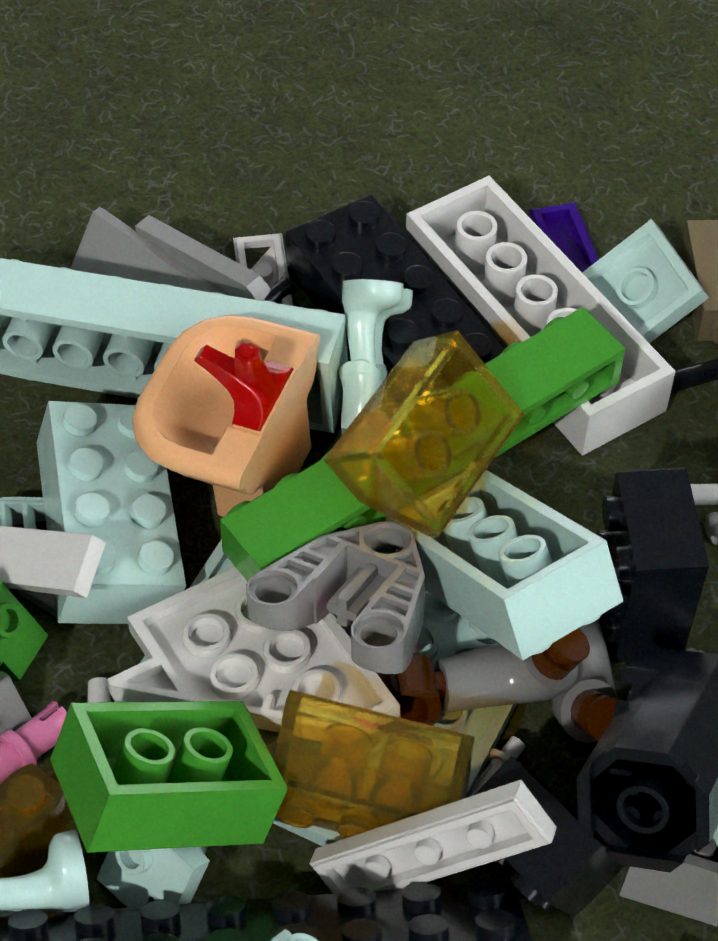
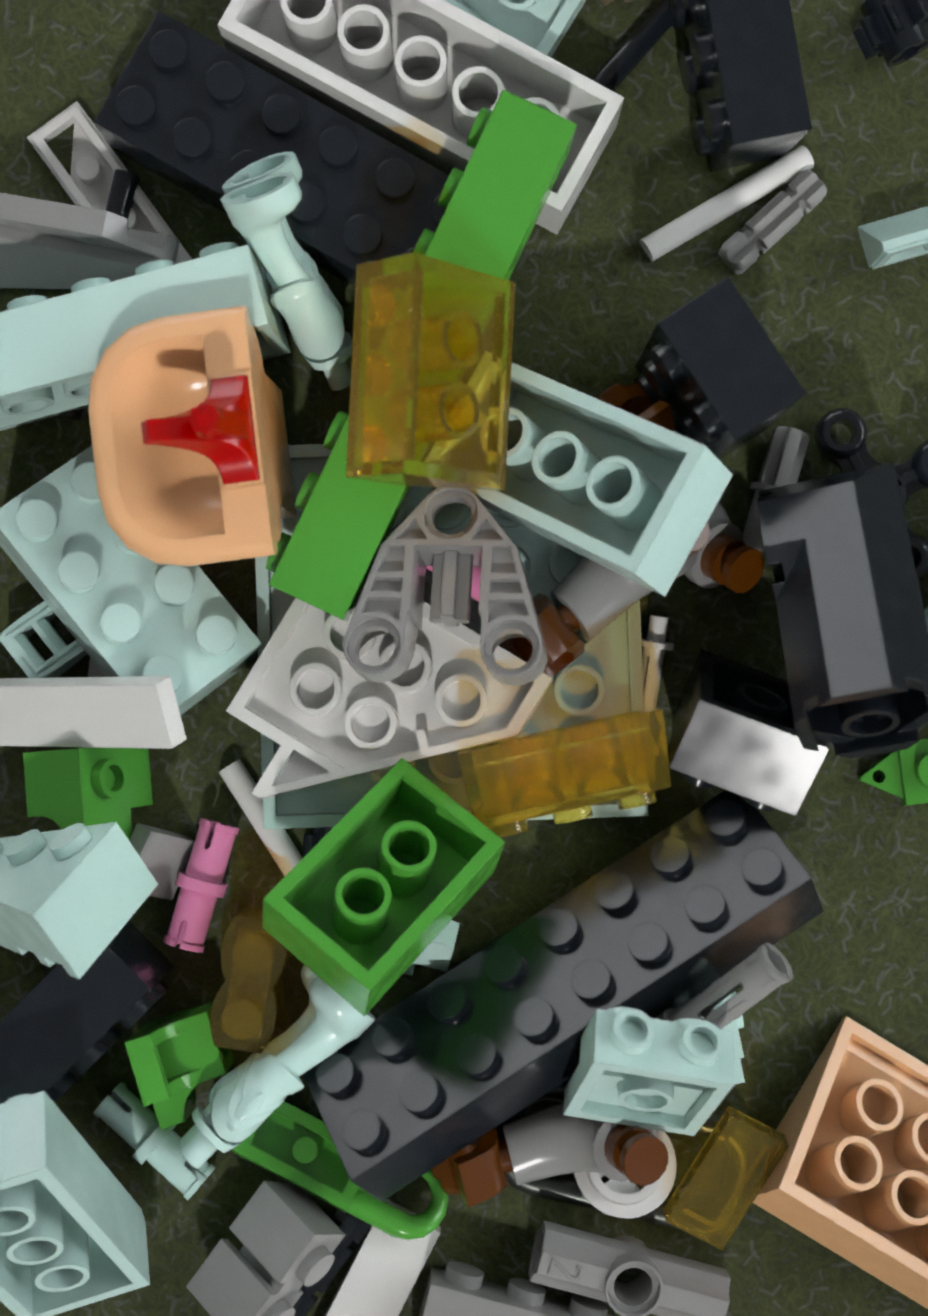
camera: 25 degrees left, 35 degrees up
(437, 841) = (665, 811): white tile -> none

